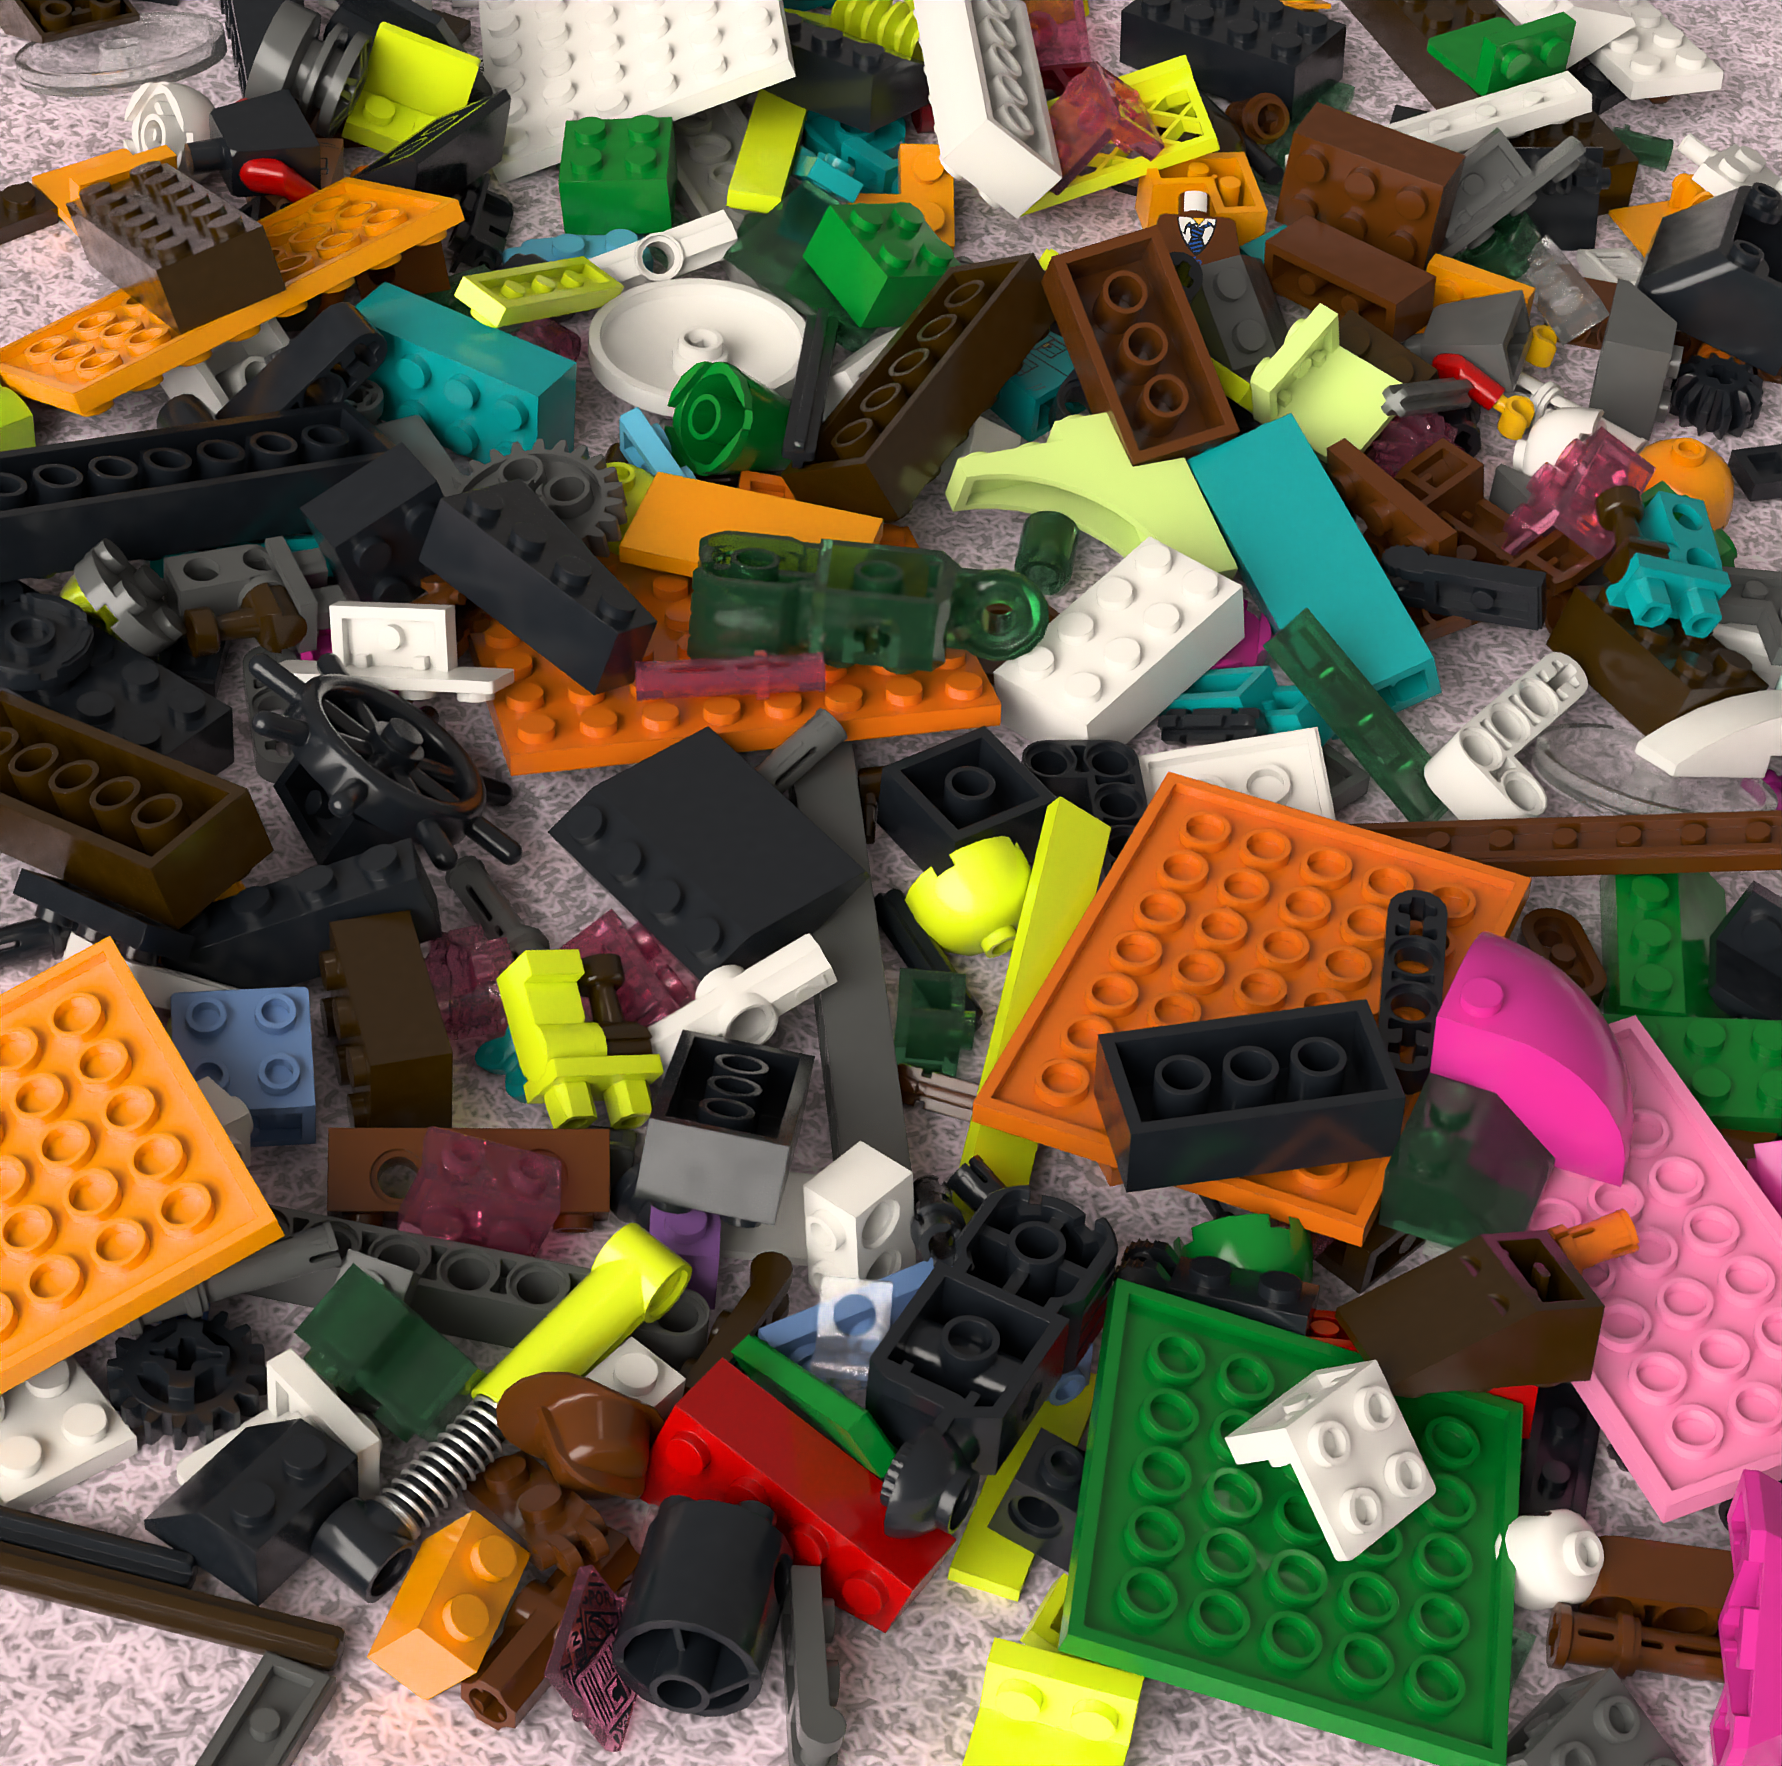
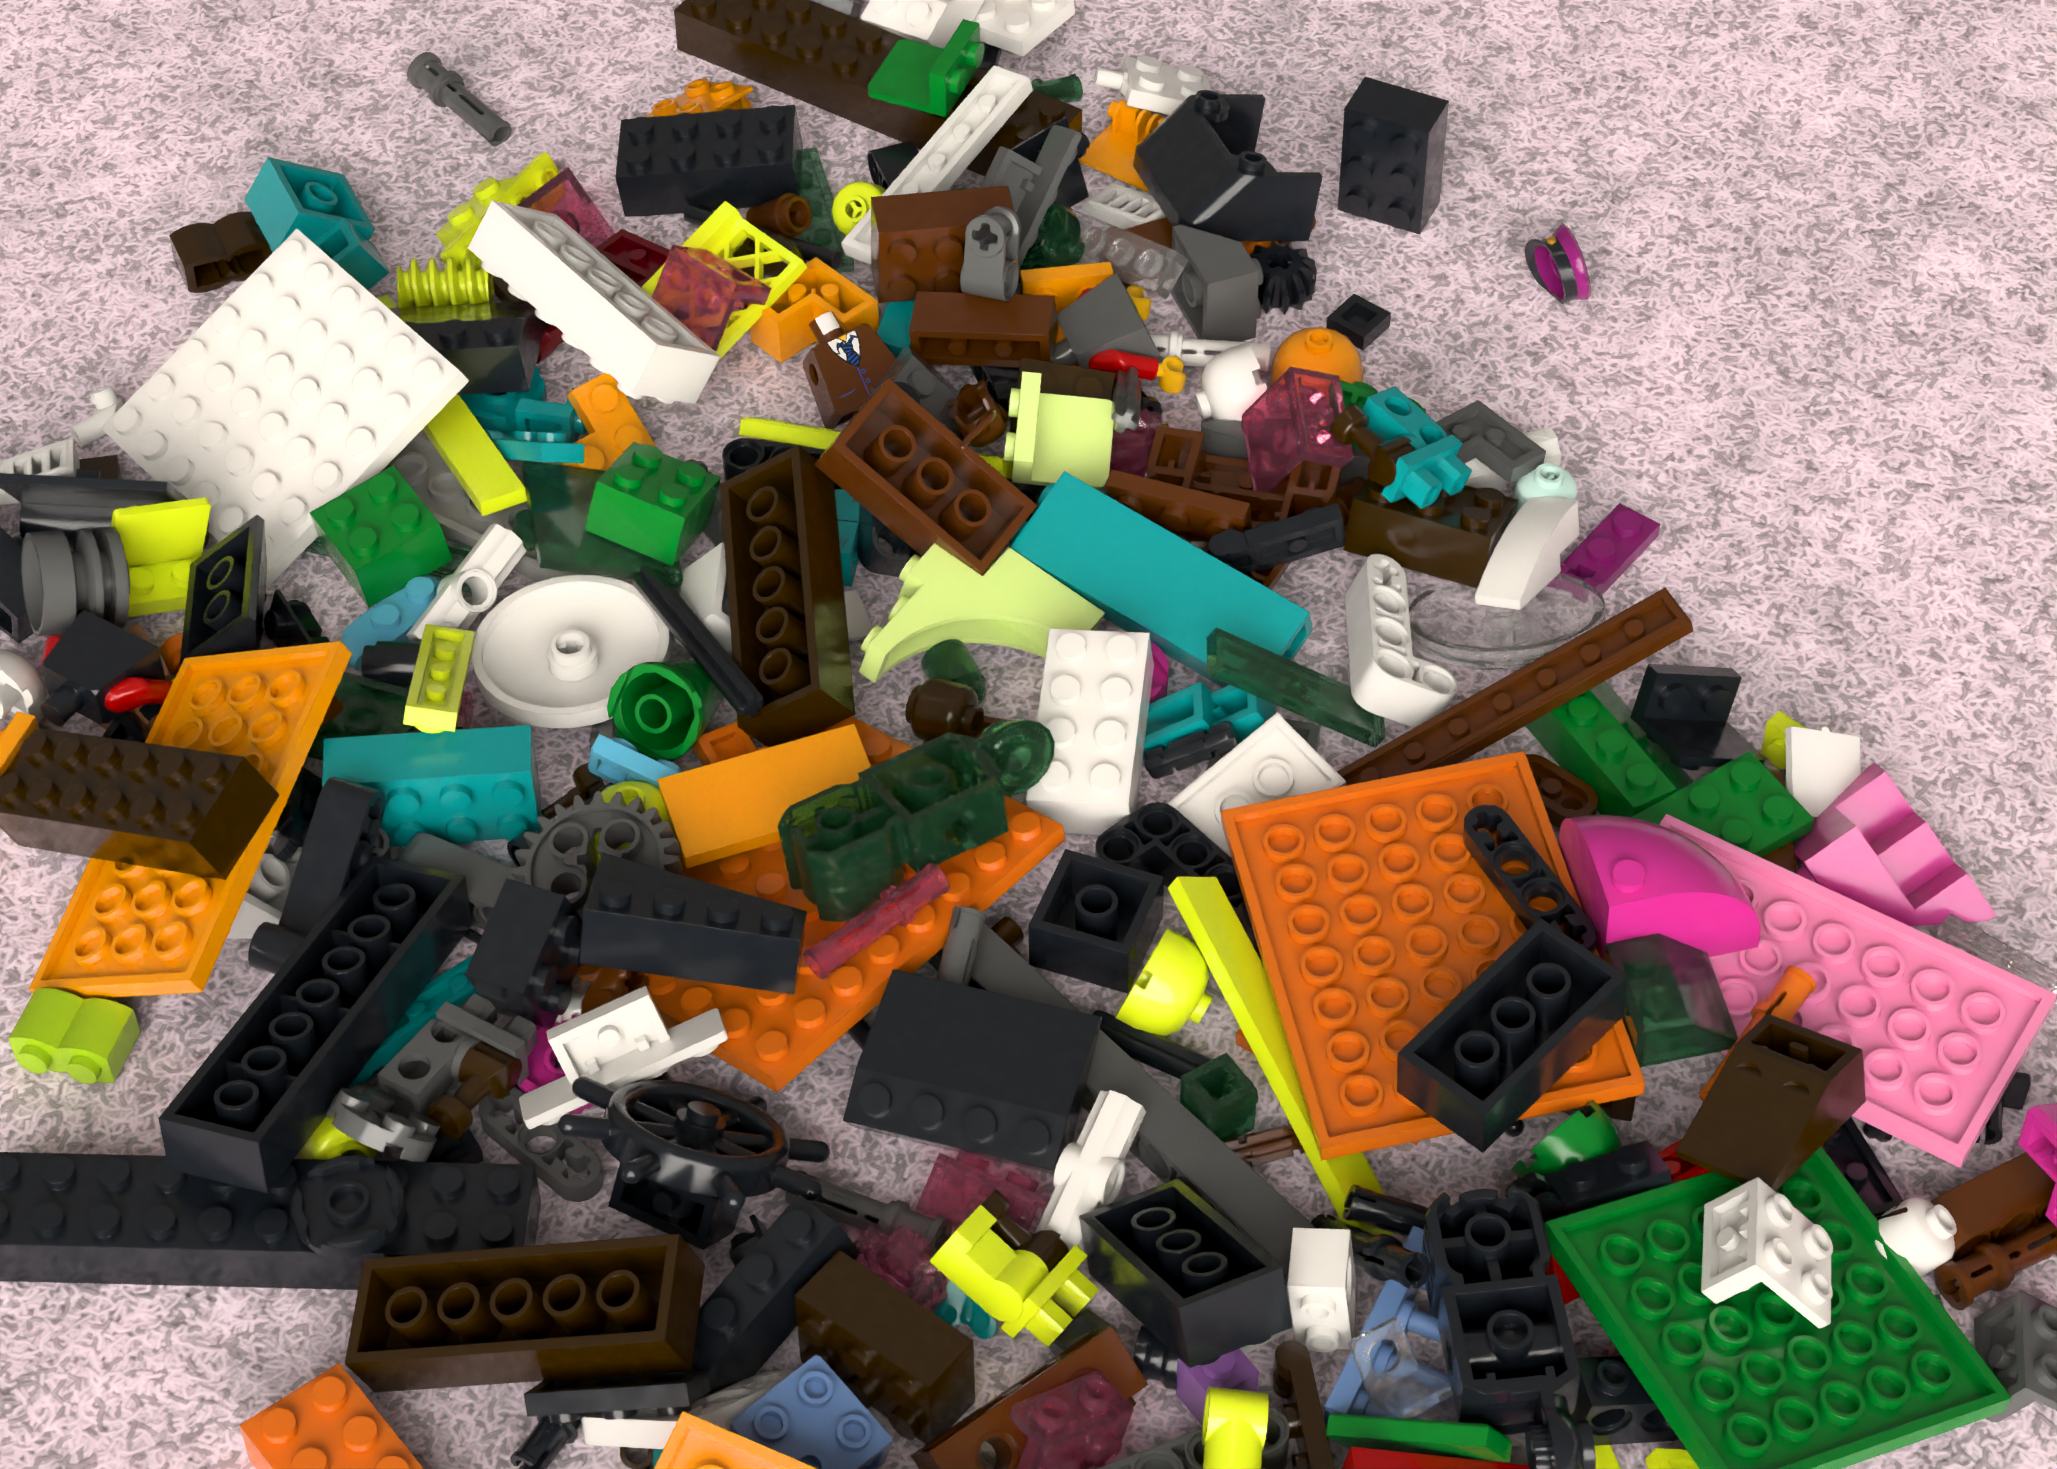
camera: 30 degrees left, 5 degrees up
(994, 549) = (942, 708): none -> dark brown head
(1251, 336) = (977, 415): none -> reddish brown animal
(1389, 205) = (989, 262): none -> dark grey piece

